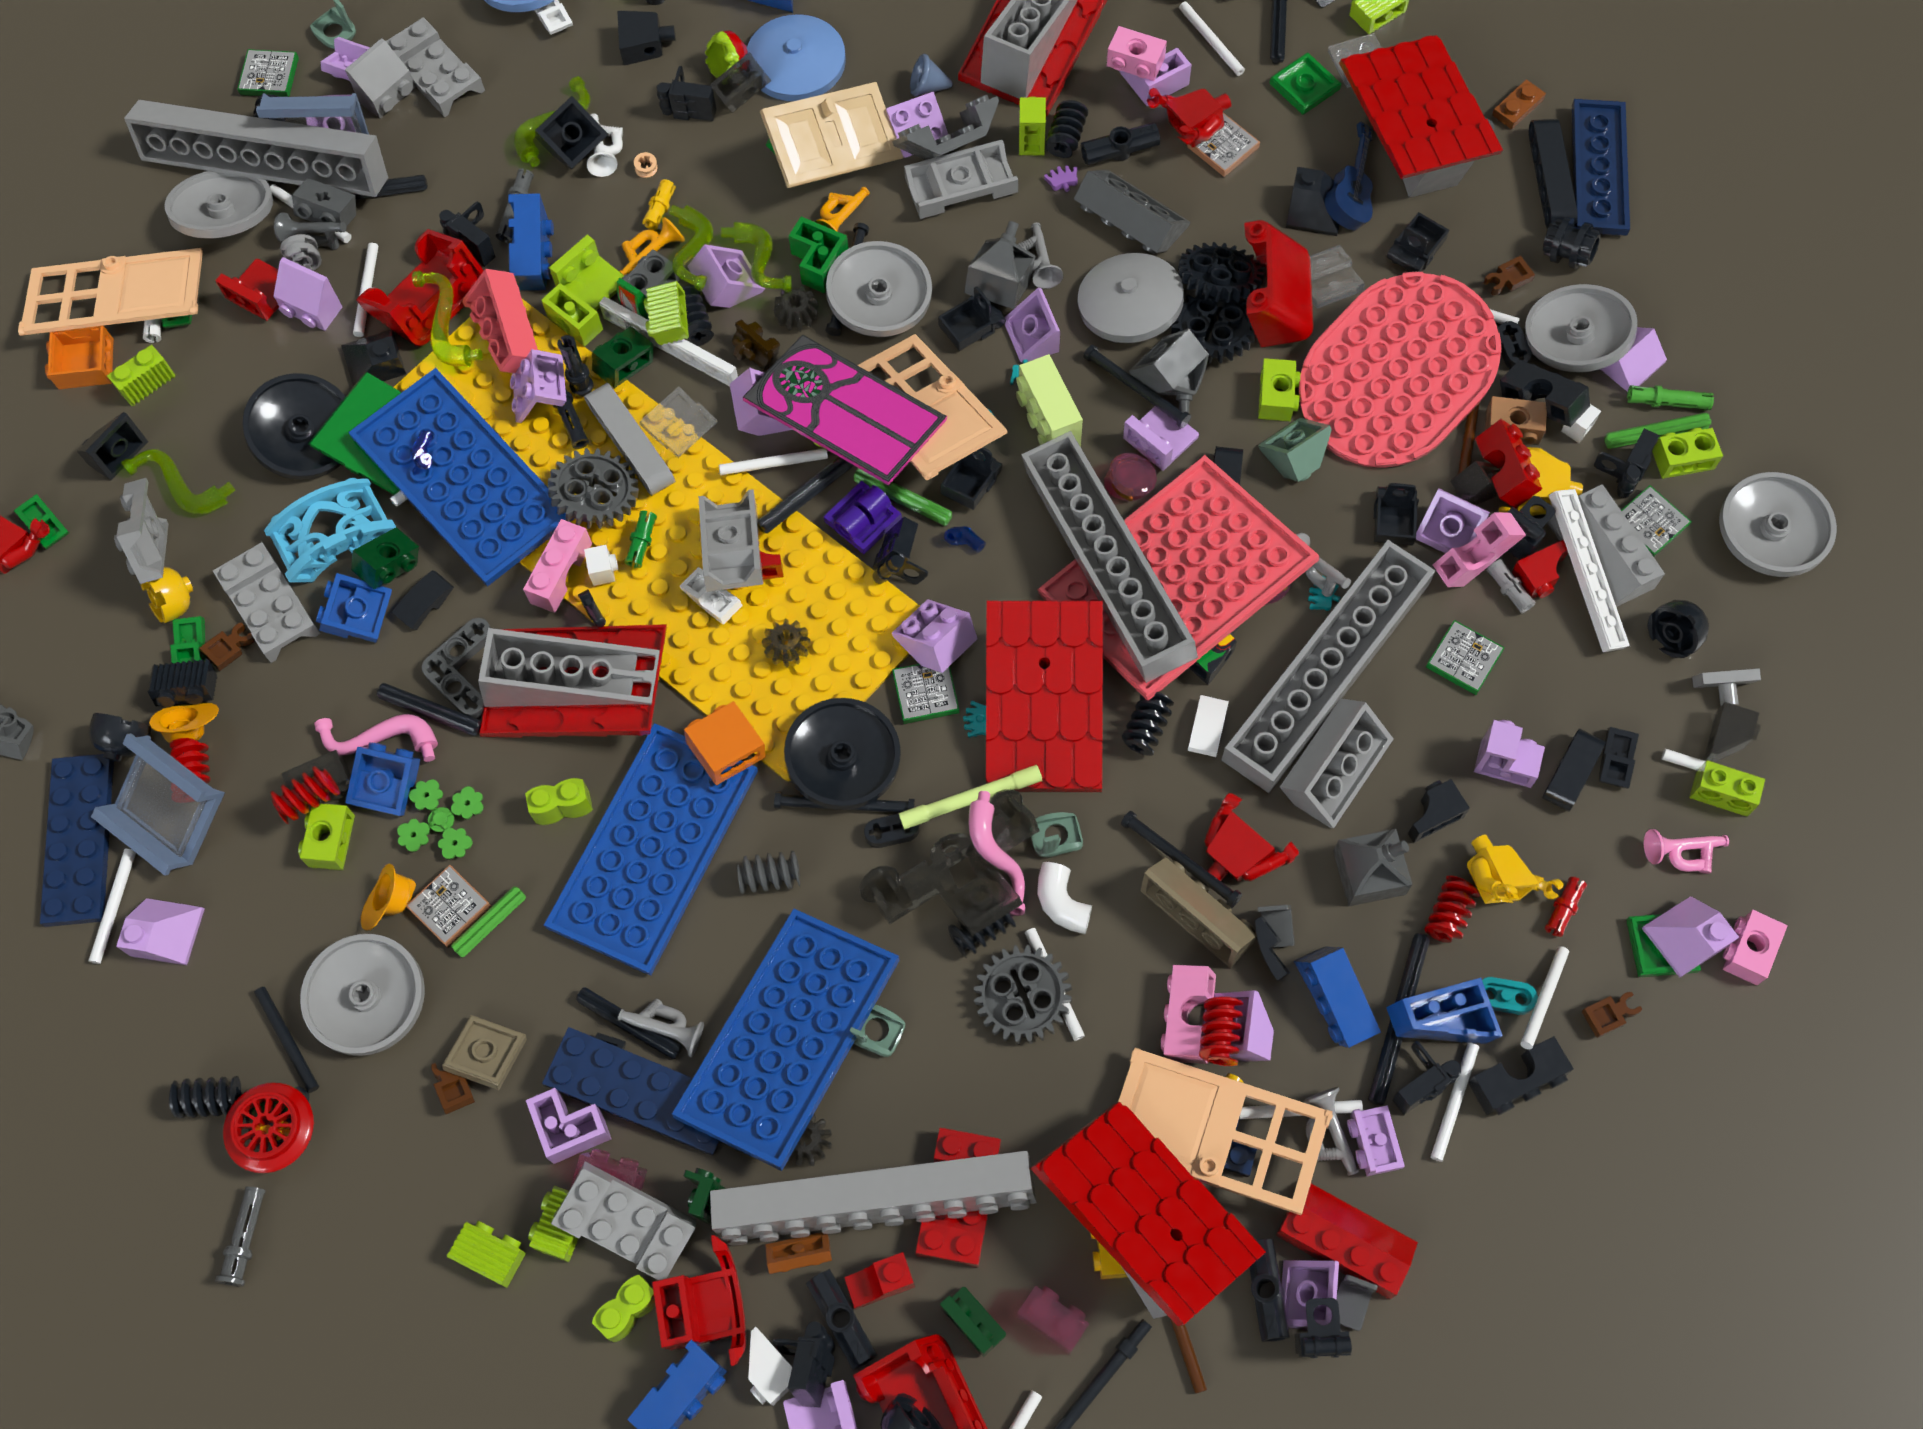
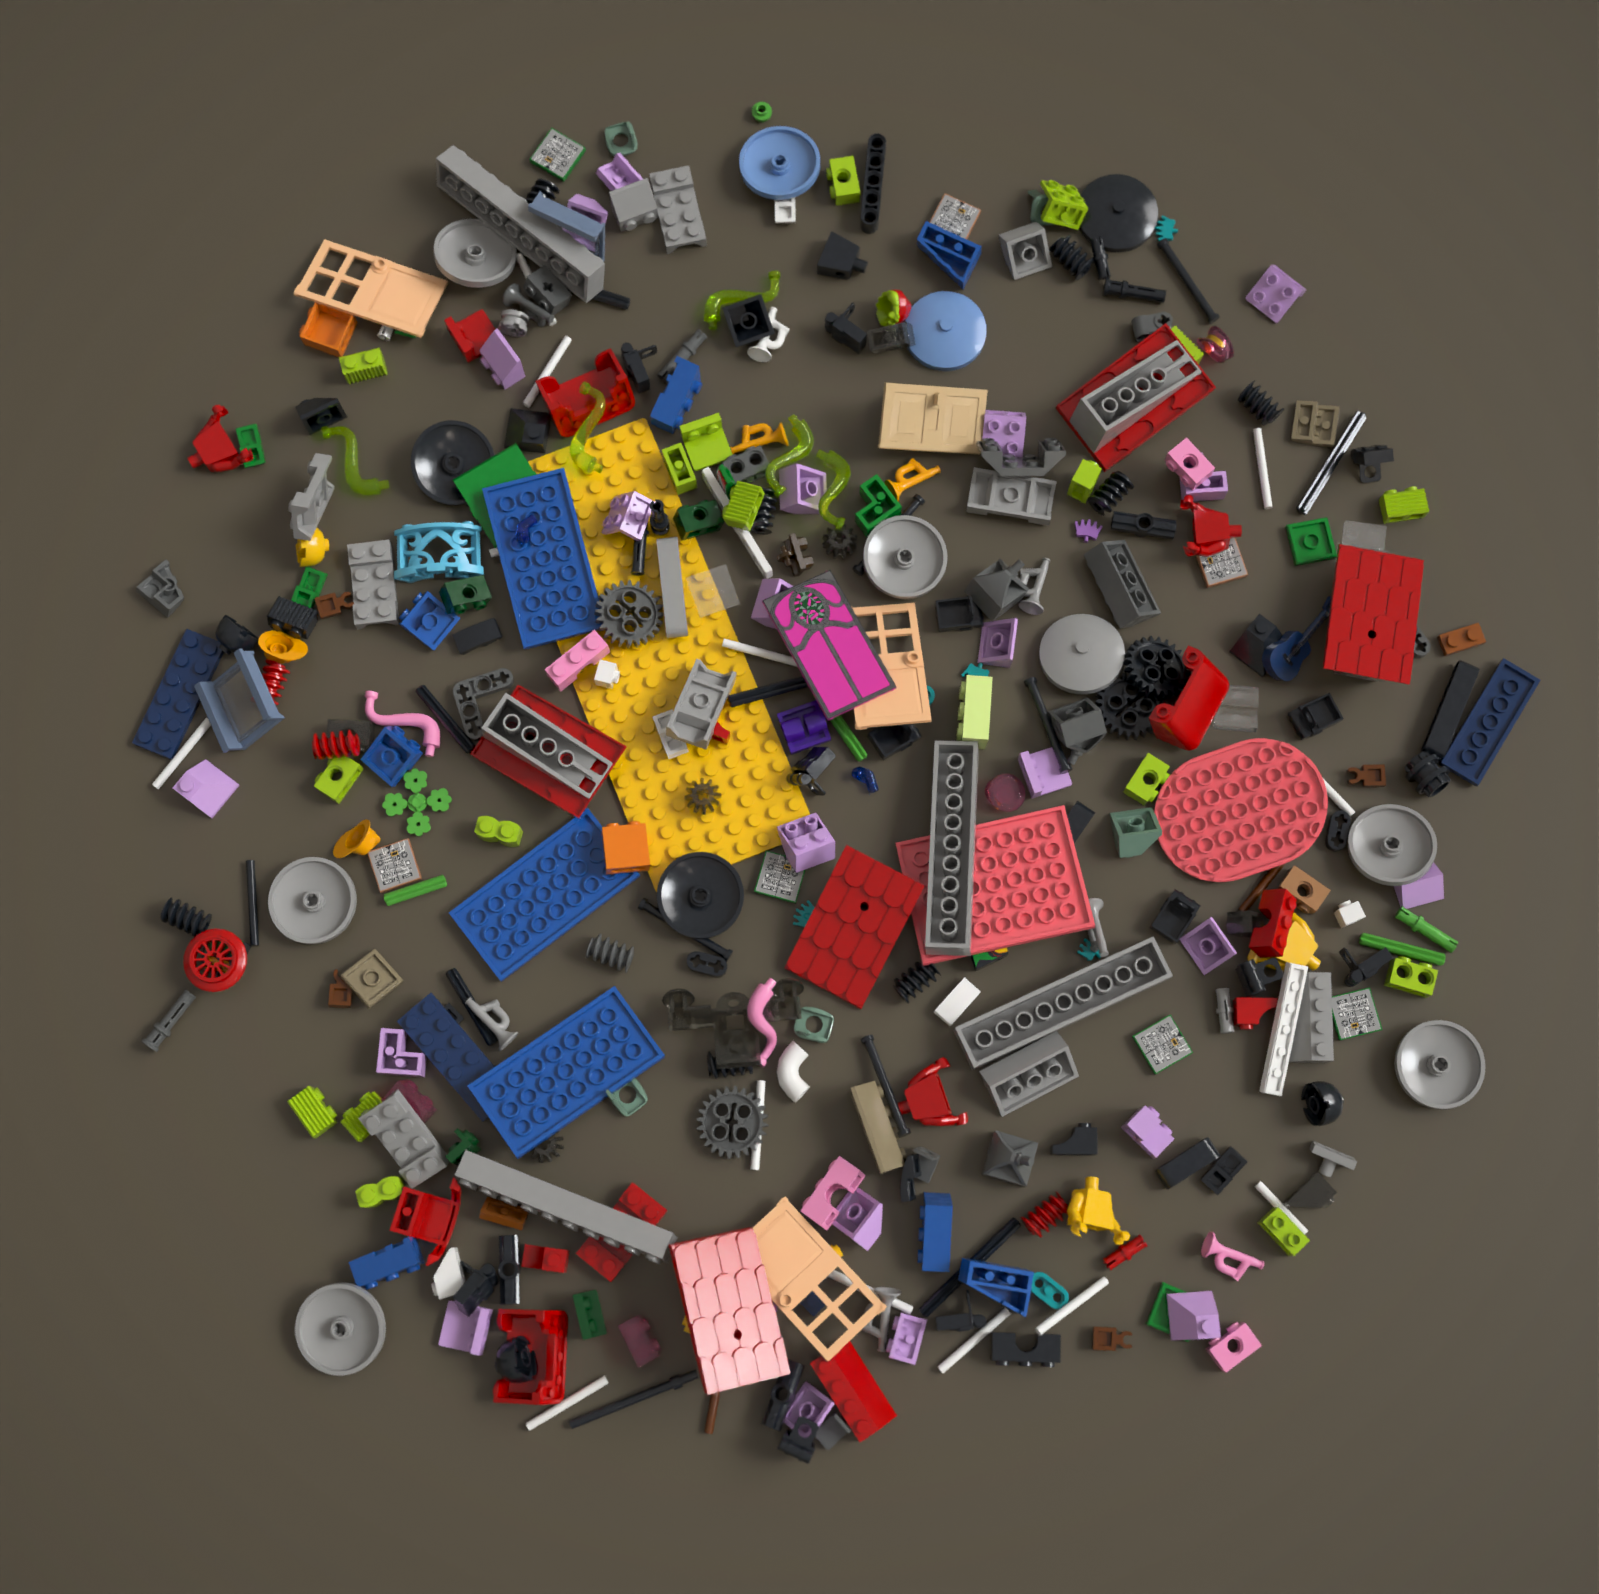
camera: 25 degrees right, 10 degrees up
(502, 318) = (629, 450): coral wedge -> none
(591, 608) = (585, 704): black bar -> none
(640, 539) = (643, 668): green pin -> none
(648, 171) = (785, 367): light nougat bush -> none
(659, 204) = (784, 407): yellow pin -> none
(926, 812) = (732, 966): yellowish green piece -> none
(928, 77) = (1031, 399): sand blue hat -> none
(1219, 1030) = (843, 1217): red piece -> none
(1493, 539) = (1217, 977): bright pink arch -> none
(1563, 397) = (1328, 866): black arch -> none

